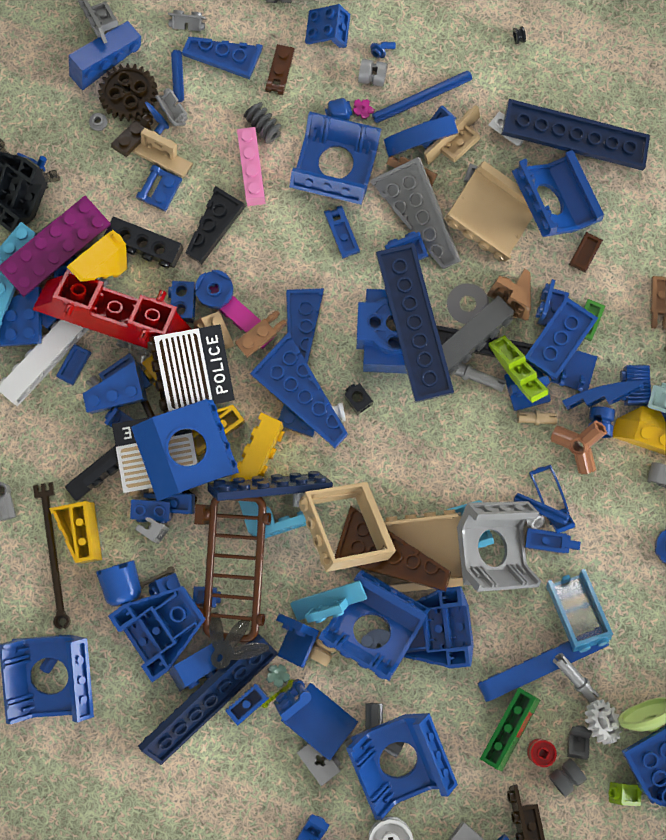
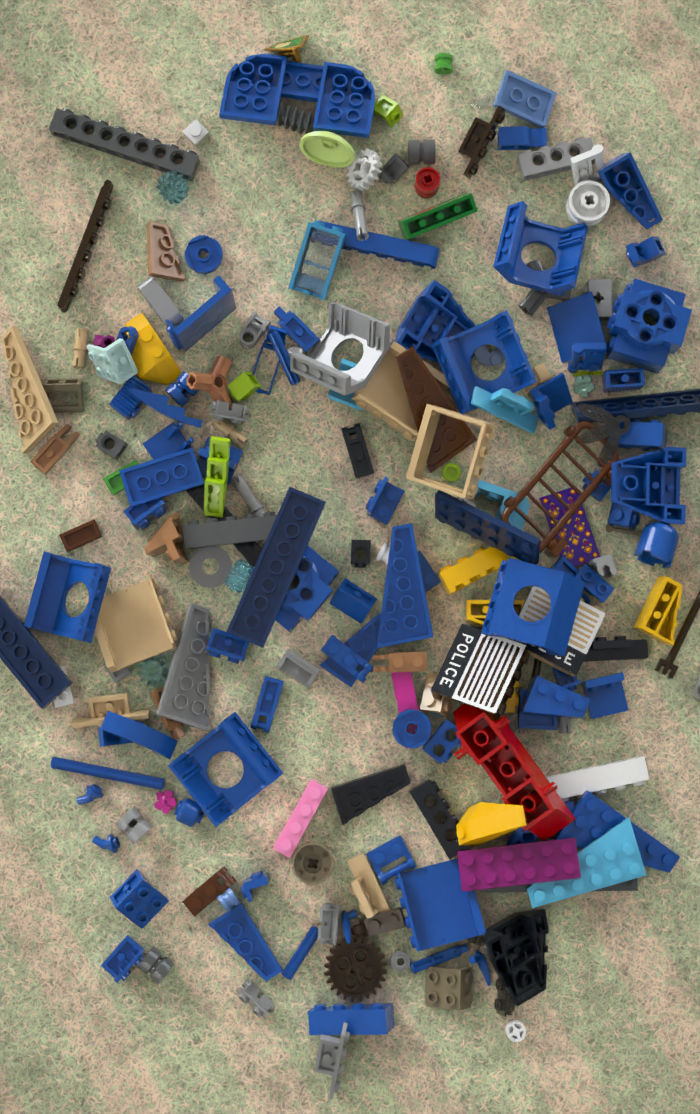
camera: 150 degrees left, 5 degrees up
(45, 127) = (449, 987): none -> dark tan bracket
(70, 144) = (438, 958): none -> blue piece
(73, 364) = (570, 756): blue tile -> none
(78, 431) = (606, 695): none -> blue bracket
(100, 175) = (437, 906): none -> blue panel
(192, 541) = (577, 531): none -> dark purple tile
(214, 129) = (301, 860): none -> dark tan wheel
(250, 92) = (257, 879): none -> blue bracket
(260, 71) = (228, 900): none -> medium blue wheel
(262, 122) = (260, 850): dark grey piece -> none
(265, 743) = (641, 343): none -> blue piece
(305, 307) = (346, 658): none -> blue plate
(334, 519) = (451, 472): none -> lime tile
(335, 358) = (353, 600): none -> blue panel
(338, 276) = (298, 668): none -> light grey hinge
(369, 453) = (385, 501): none -> blue bracket
(422, 74) = (93, 792): none -> blue plate
(423, 478) = (357, 451): none -> black plate
(440, 308) = (239, 576): none -> clear light blue gear
(447, 185) = (158, 675): none -> clear light blue gear
(555, 461) = (243, 386): none -> lime brick
(556, 425) = (221, 411): none -> light grey hinge
(584, 515) = (254, 327): none -> light grey piece
(613, 339) = (118, 448): none -> dark grey brick
(630, 486) = (204, 318): none -> blue panel

